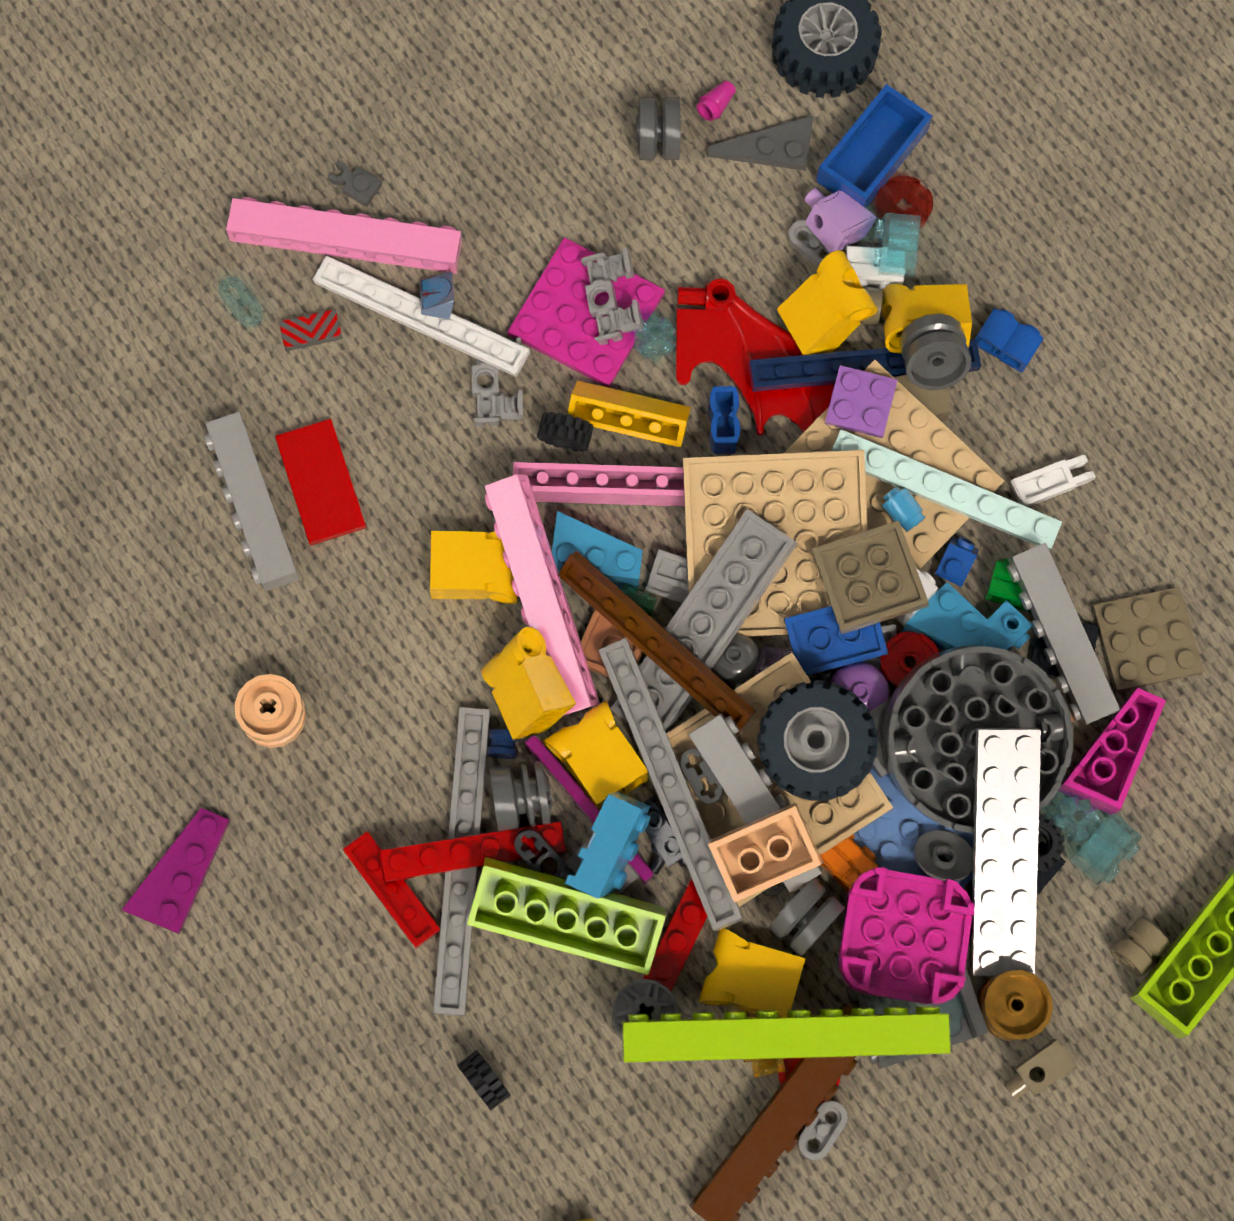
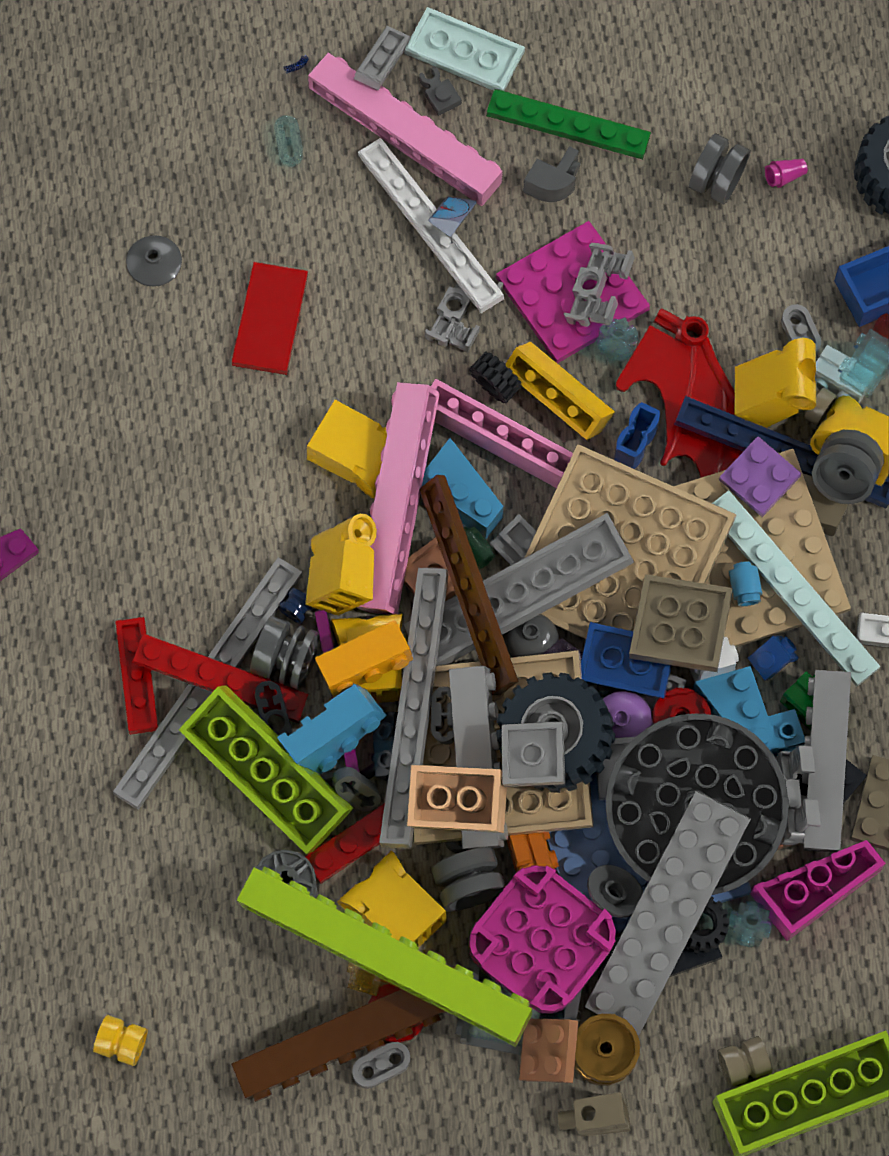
camera: 30 degrees right, 5 degrees down
(181, 495) = (156, 271): none -> dark grey dish
(207, 222) = (300, 62): none -> clear blue leg
(252, 502) = (203, 304): light grey brick -> none
(269, 693) = (121, 478): light nougat wheel -> none
(286, 177) = (382, 58): none -> light grey tile
(310, 330) = (333, 191): tile -> none
(356, 131) = (464, 50): none -> light aqua tile
(483, 1080) = (121, 866): black tyre -> none
(492, 154) = (568, 124): none -> green plate
(509, 219) = (553, 183): none -> dark grey brick
(602, 764) = (365, 658): none -> light orange brick
(657, 888) = (360, 785): none -> dark grey beam
(777, 146) = (817, 235): dark grey wing -> none
(815, 775) = (533, 754): none -> light grey plate
(837, 219) = (832, 319): lavender torso -> none
(972, 1036) = (549, 1050): none -> nougat plate
(1045, 647) = (800, 813): none -> light grey piece
(1106, 849) = (763, 965): clear light blue brick -> none

